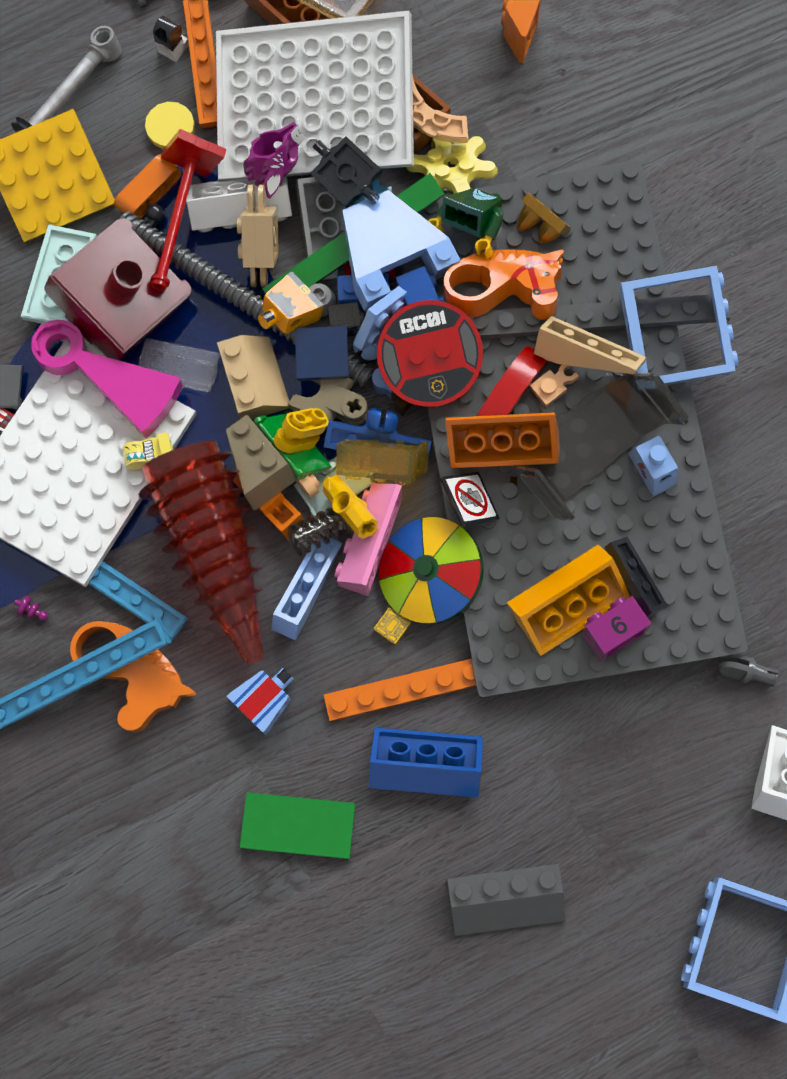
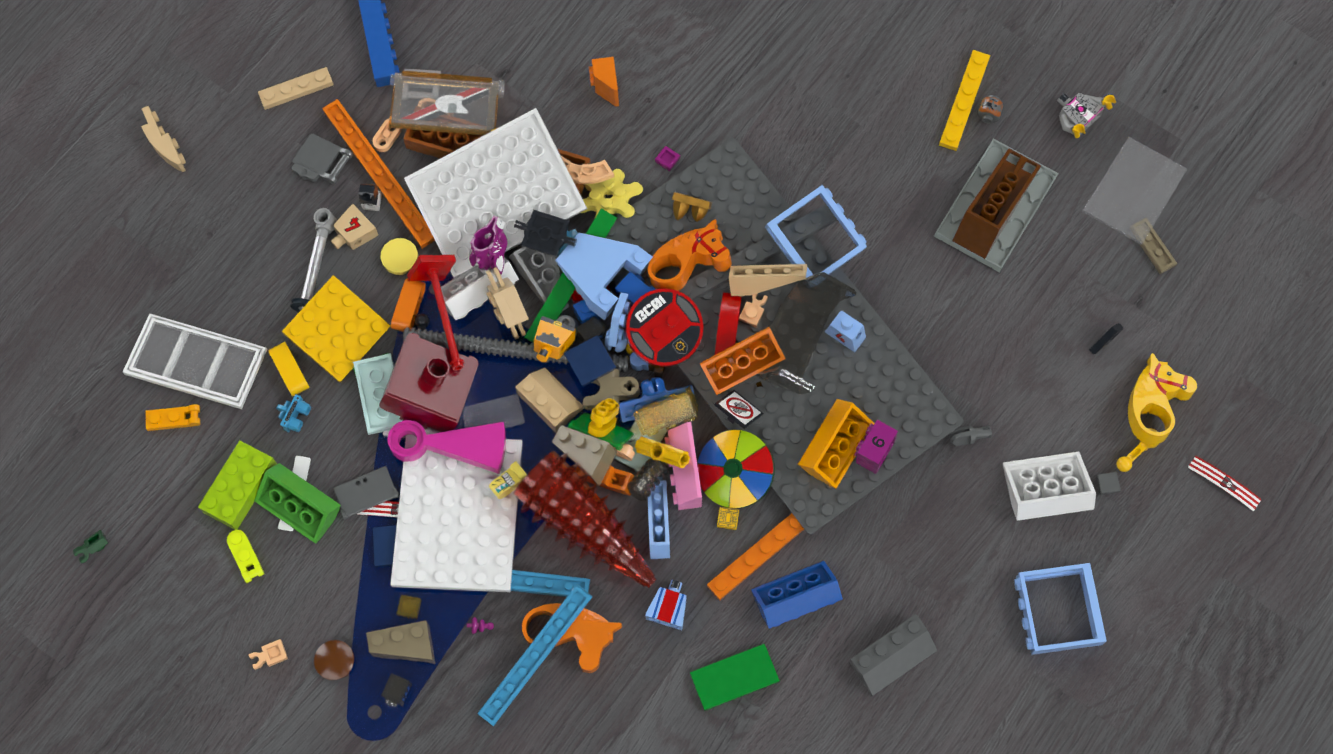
camera: 30 degrees left, 5 degrees down
(132, 69) = (353, 229): none -> tan torso
(473, 213) = (645, 222): dark green torso -> none
(548, 152) = (667, 158): none -> magenta tile
(636, 576) = (871, 407): black plate -> none

